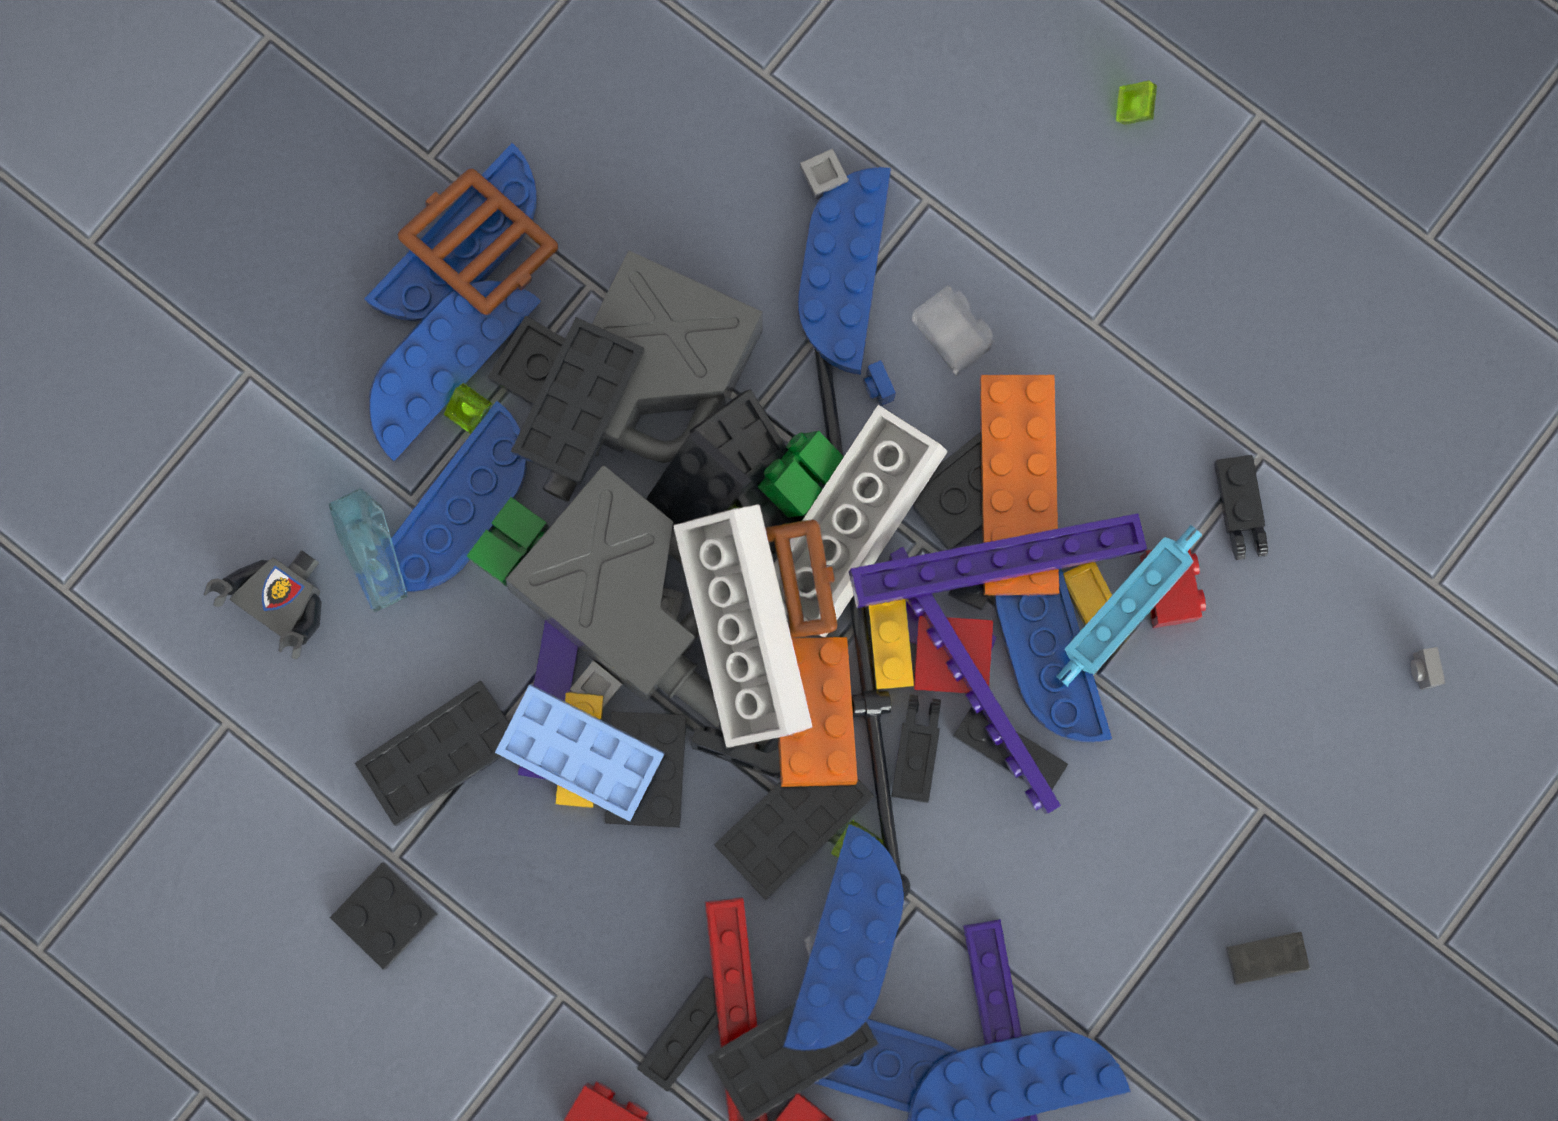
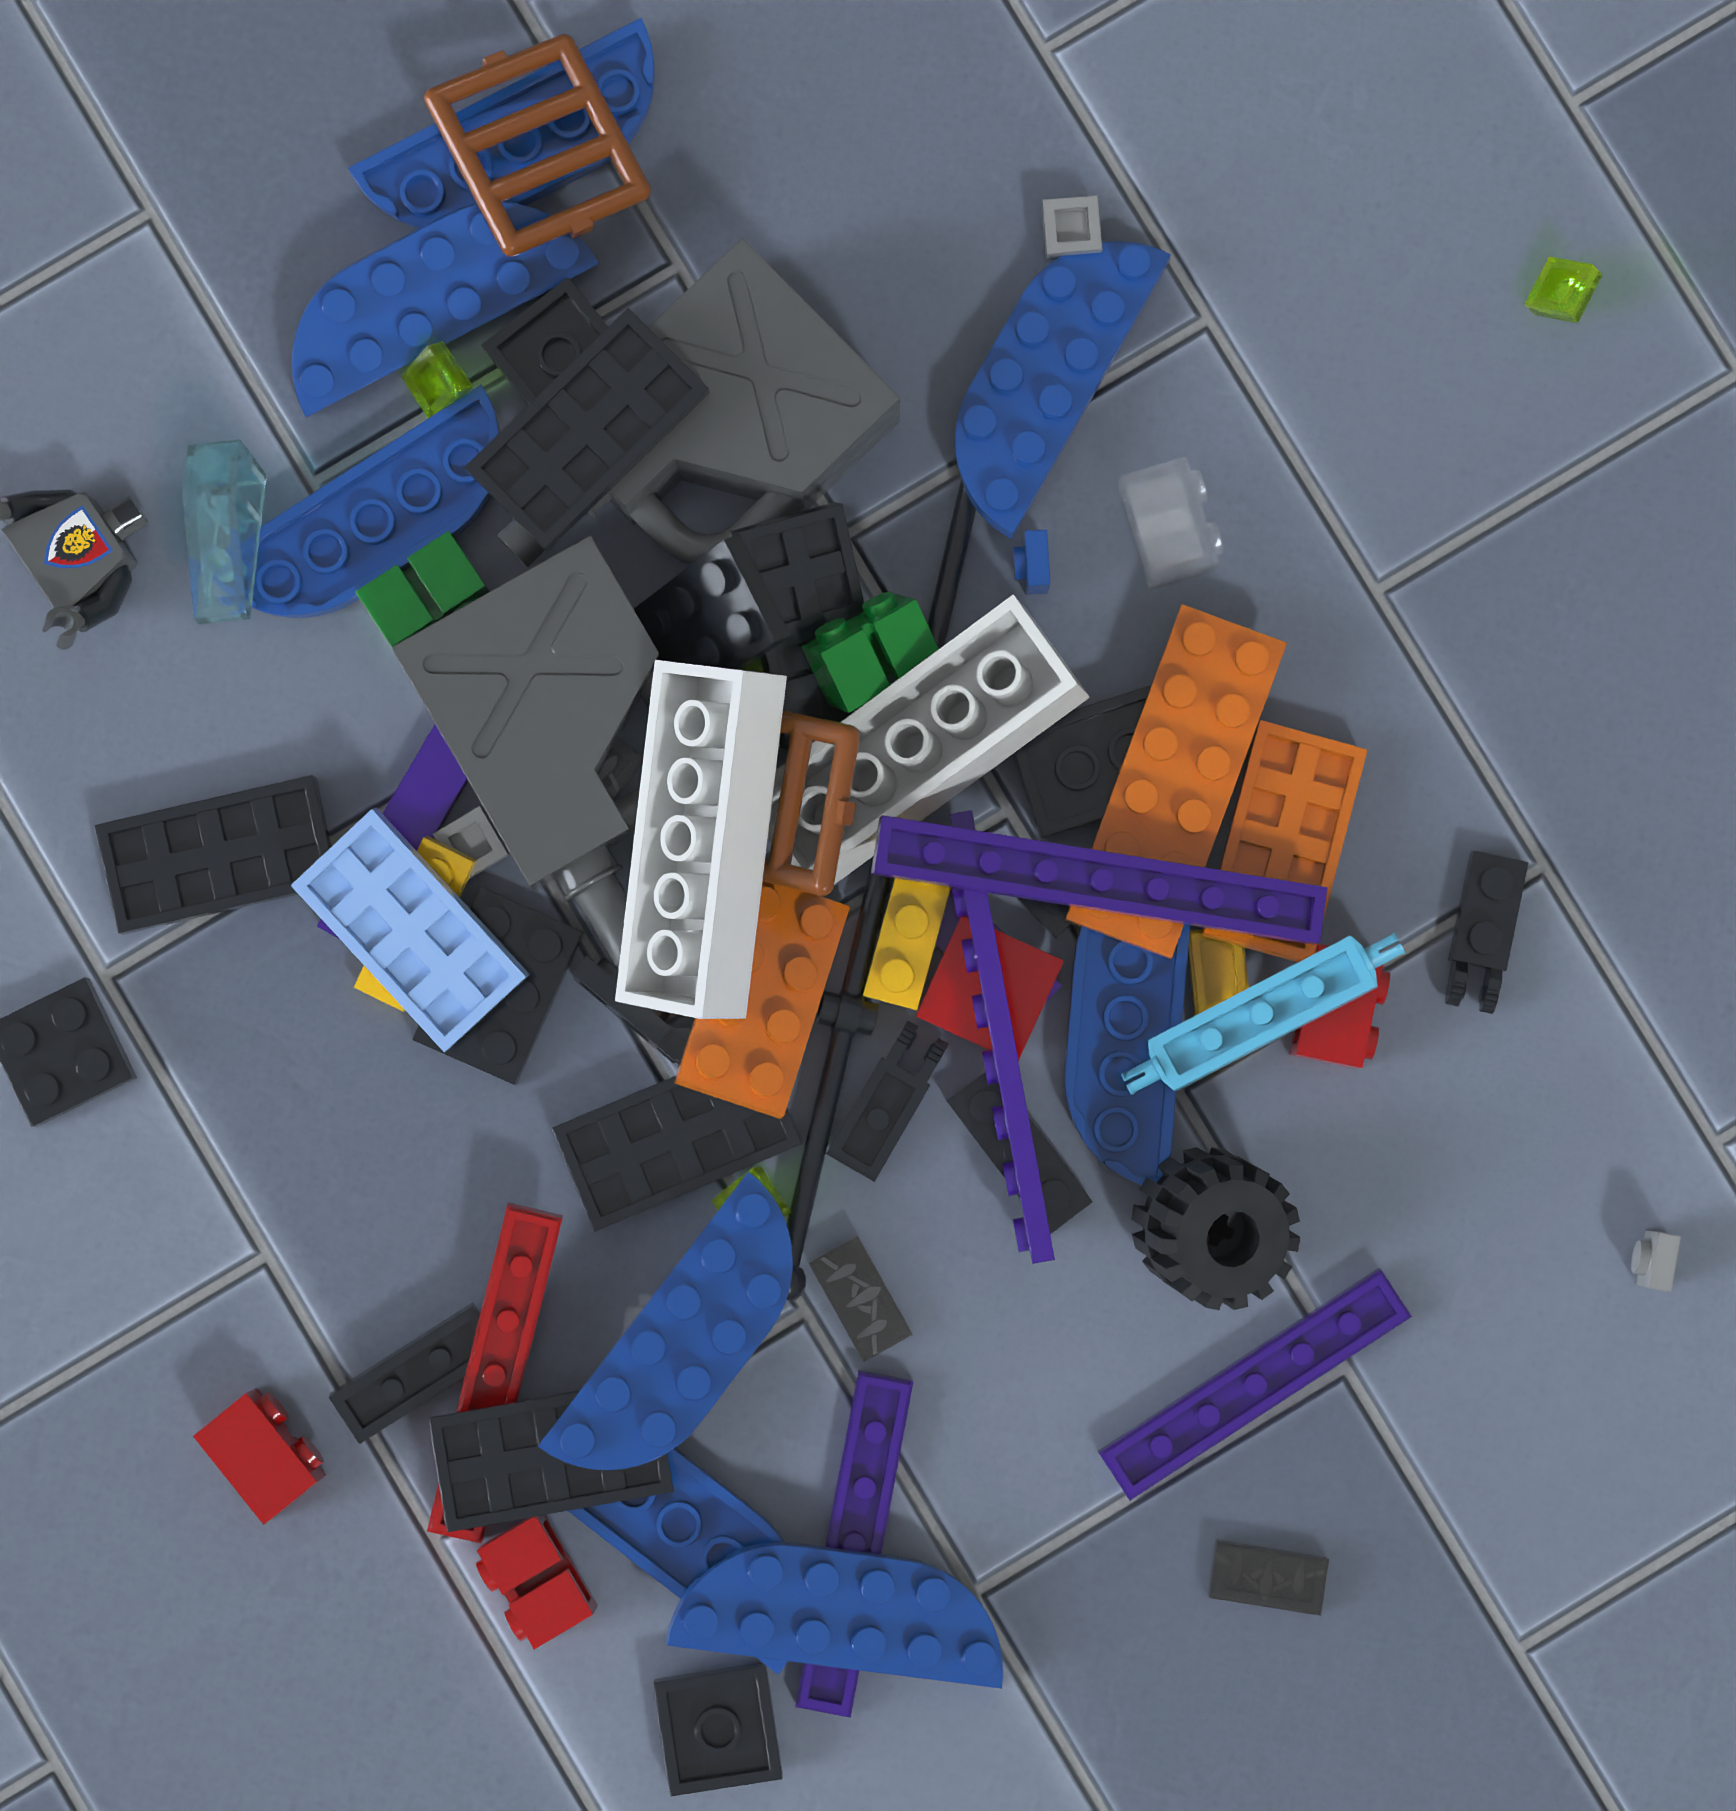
camera: 25 degrees right, 5 degrees up
(947, 879) = (860, 1298): none -> clear smoke tile
(1097, 482) = (1290, 819): none -> orange plate
(1151, 749) = (1215, 1228): none -> black wheel
(1211, 840) = (1254, 1384): none -> dark purple tile

